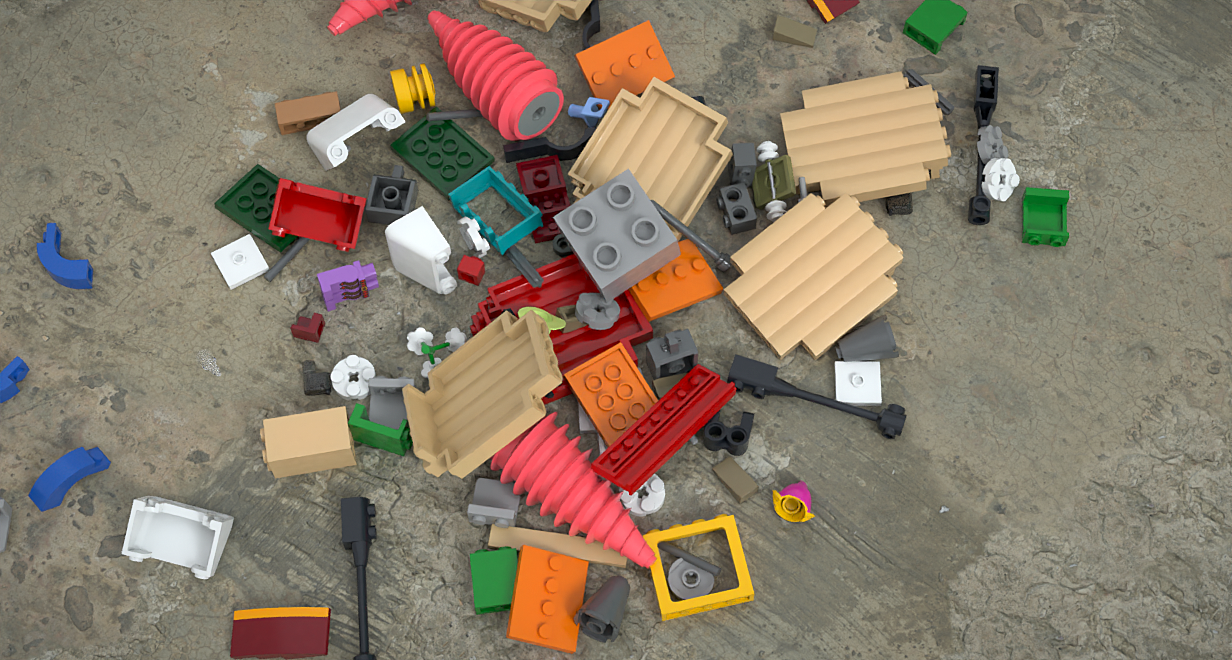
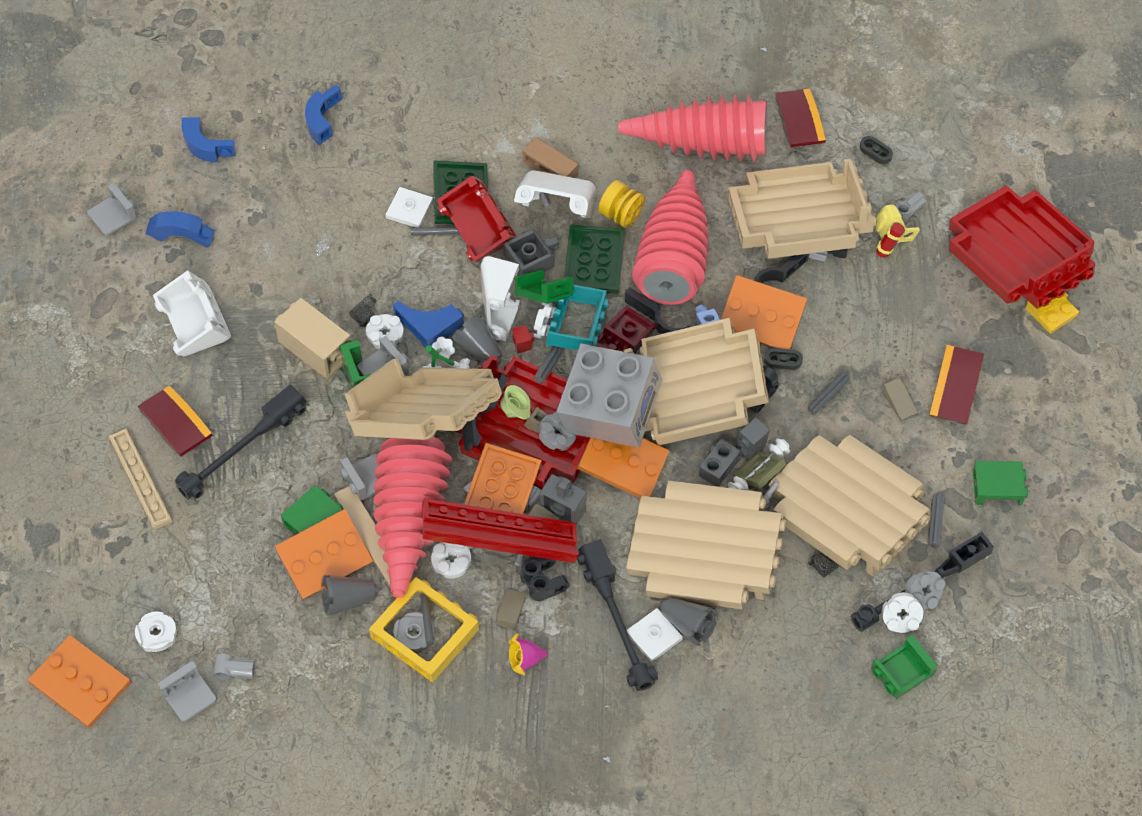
camera: 50 degrees right, 5 degrees down
(309, 328) = (397, 280): dark red panel -> none
(347, 283) = (443, 274): medium lavender hips -> none
(385, 337) = (430, 325): none -> blue arch
(444, 306) = (477, 339): none -> dark grey cone
(451, 210) = (536, 288): none -> green panel
(458, 114) = (622, 239): dark grey bar -> none
(682, 75) = (783, 359): none -> pearl dark grey plate
(721, 259) = (663, 442): dark grey piece -> none
(741, 78) = (828, 393): none -> dark grey axle

